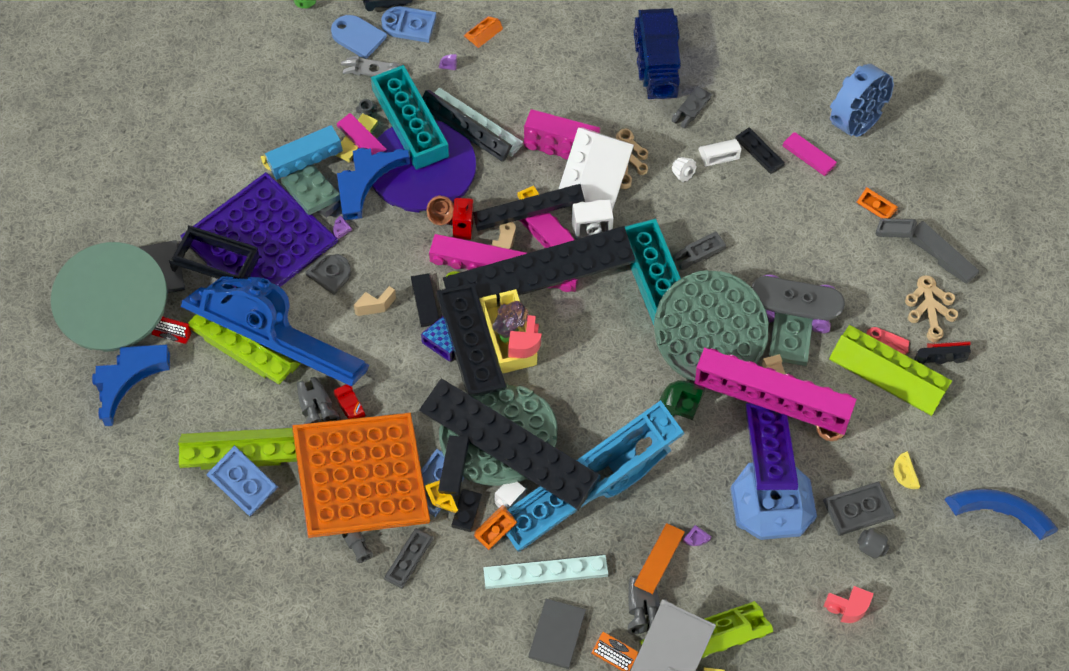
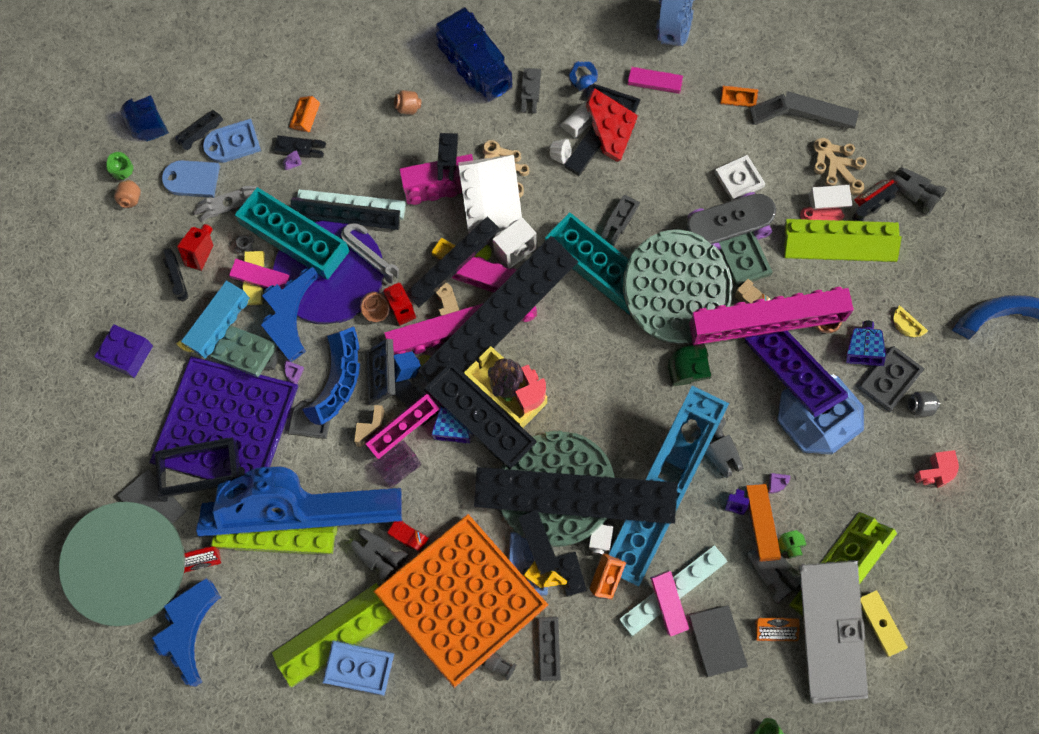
camera: 25 degrees left, 10 degrees up
(215, 139) = (123, 351): none -> dark purple brick
(294, 104) = (175, 275): none -> black plate
(297, 20) = (127, 194): none -> nougat head
(325, 89) = (196, 247): none -> red torso
(378, 252) = (342, 377): none -> blue brick
(378, 344) = (397, 464): none -> clear purple bracket
(400, 313) = (401, 425): none -> dark pink brick
(411, 263) = (380, 372): none -> dark grey tile
(434, 269) = (405, 366): none -> blue brick
(461, 165) = (367, 254): none -> light grey piece
(464, 55) = (287, 145): none -> black hinge
(533, 576) = (669, 603): none -> tile
(563, 216) = (484, 253): none -> lime piece
(576, 63) = (407, 102): none -> nougat head
(577, 117) = (447, 154): none -> black hinge
(647, 531) = (737, 503): none -> dark purple tile
(664, 480) = (722, 451): none -> dark grey piece
(673, 592) = (792, 550): none -> bright green piece
(708, 180) = (583, 153): none -> black tile
(742, 168) = (611, 123): none -> red plate
(744, 121) = (585, 80): none -> blue piece
(831, 270) = (739, 177): none -> white plate
(851, 467) = (867, 346): none -> torso
(903, 328) = (830, 197): none -> white brick
(990, 362) = (914, 187): none -> dark grey piece

